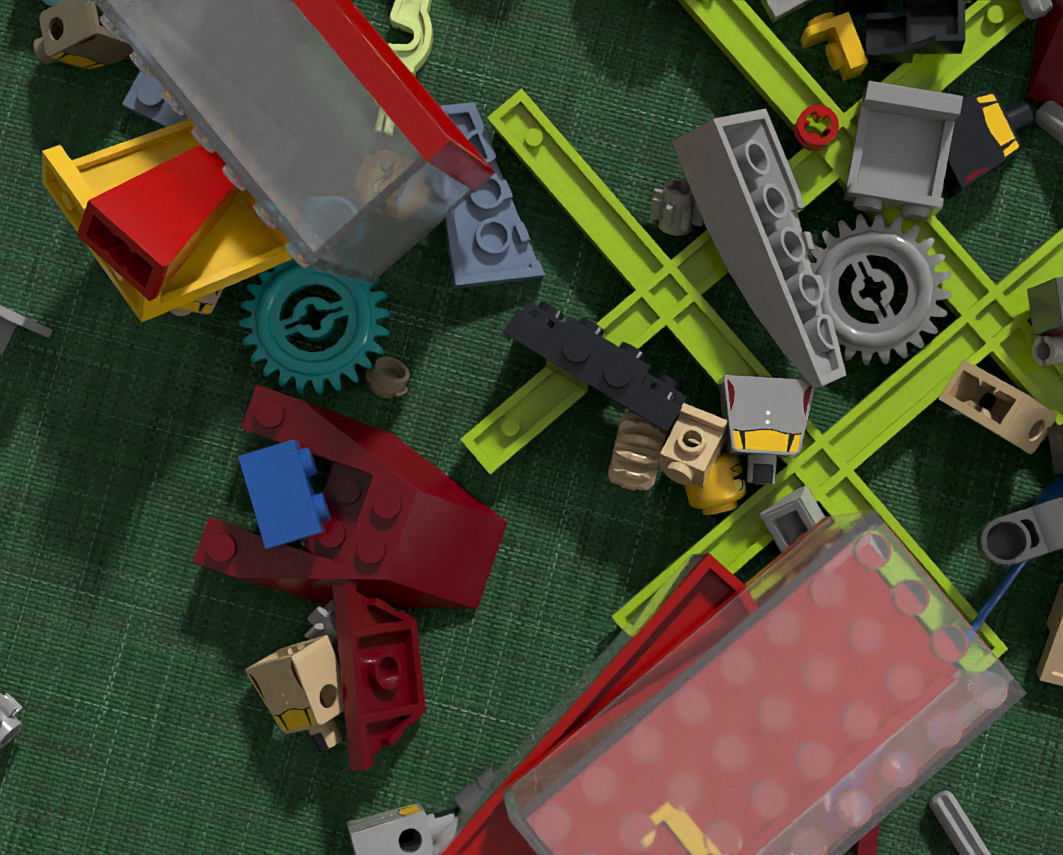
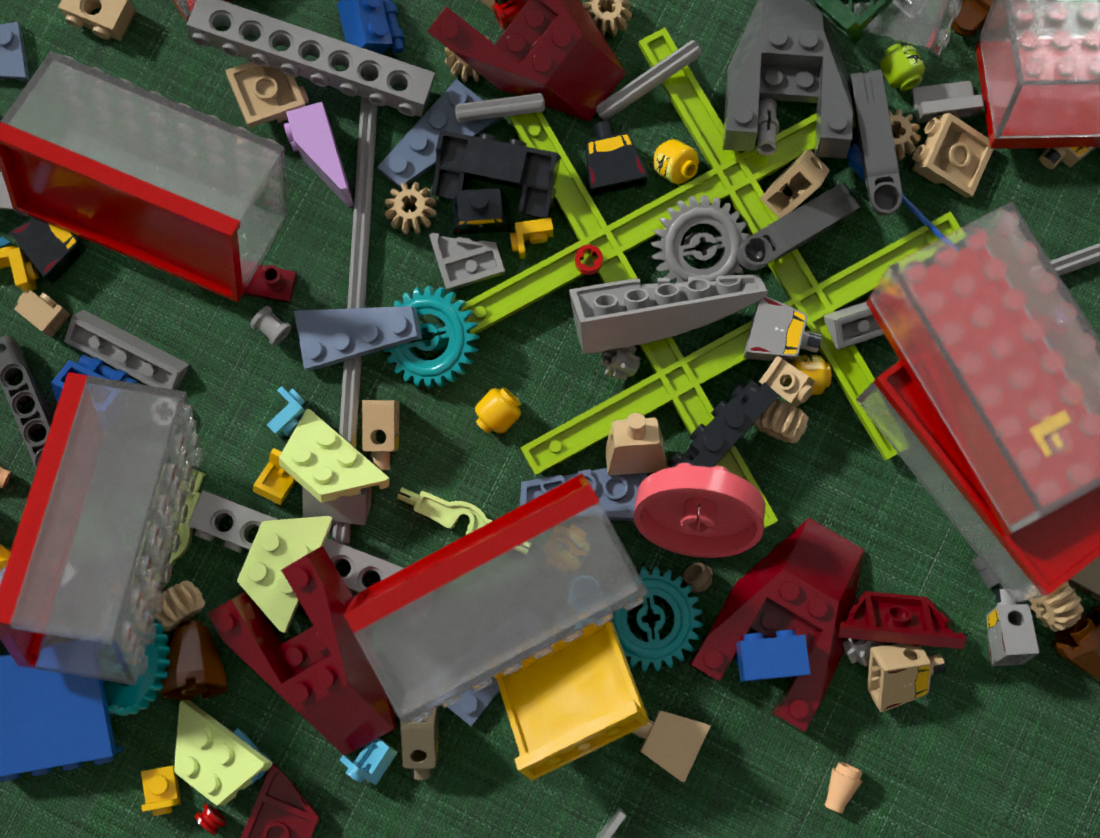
camera: 80 degrees left, 5 degrees down
(136, 635) = (843, 784): none -> light nougat cone
(151, 380) = (672, 742): none -> tan torso
(158, 218) = (586, 694): red slope -> none
(473, 348) = (723, 525): none -> coral piece
(555, 250) = (635, 446): none -> tan torso
(569, 49) = (497, 410): none -> yellow head
(901, 150) = (617, 209): light grey panel -> none
(931, 422) = (798, 227): none -> dark grey piece
(994, 229) = (676, 161): none -> yellow head

